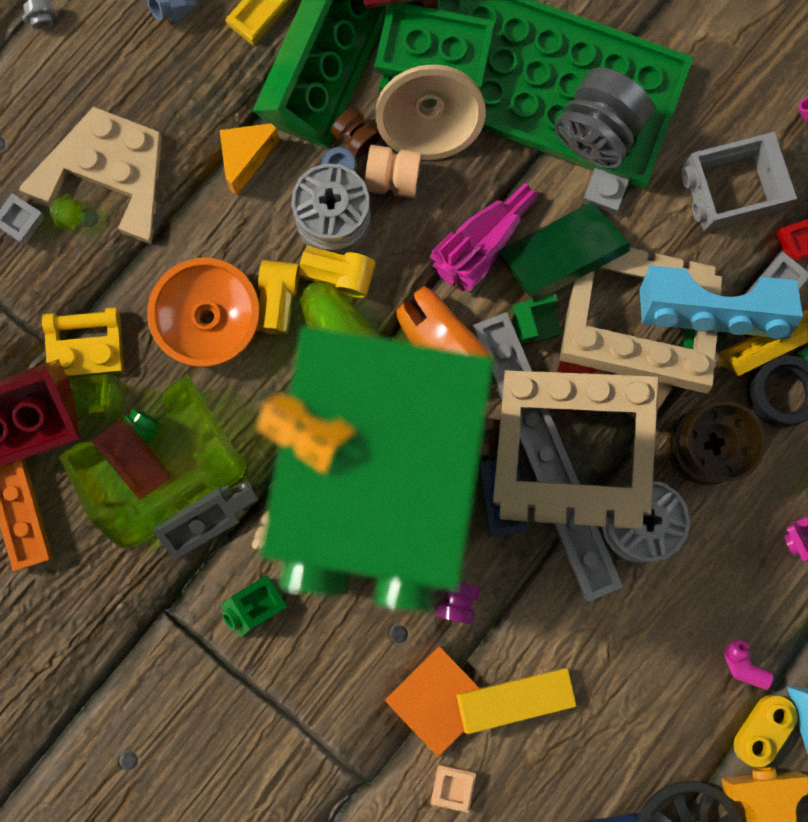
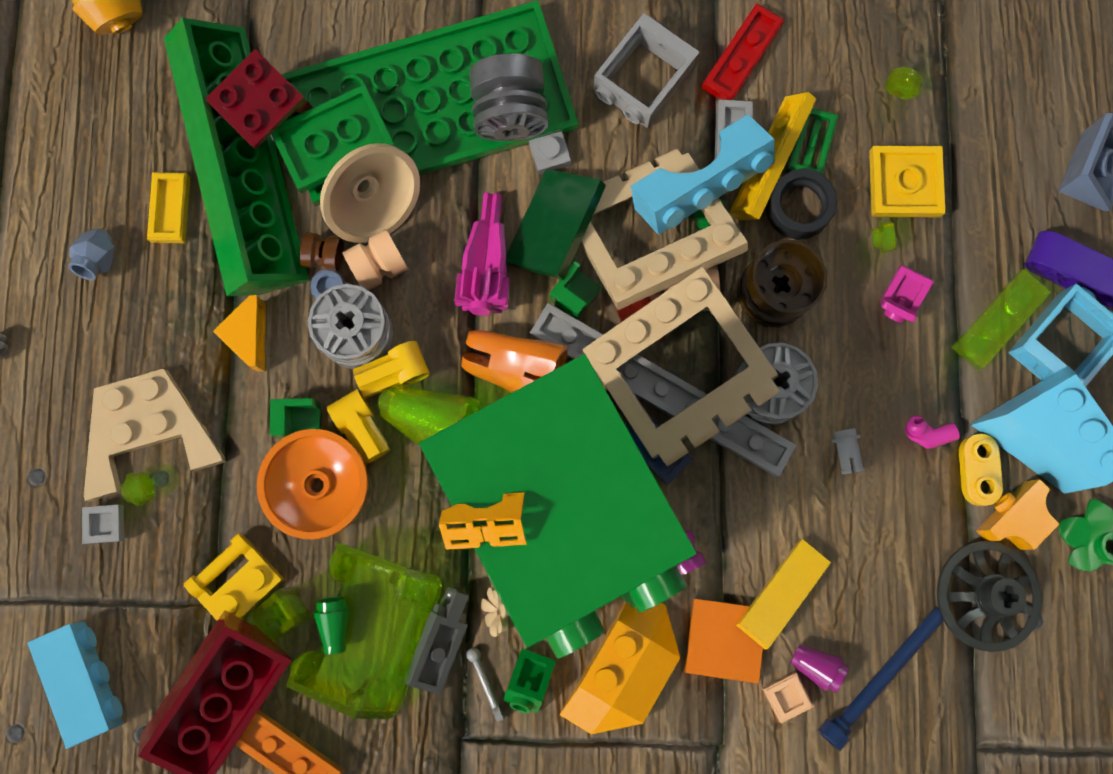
camera: 35 degrees left, 0 degrees up
(131, 458) = (345, 642): clear red tile -> none
(225, 551) = (474, 656): none -> light grey hinge
(231, 246) = (293, 416): none -> green panel
(338, 659) = (625, 672): none -> light orange wedge
(499, 785) = (820, 667): none -> magenta cone
(665, 623) = (848, 448): none -> light grey pin

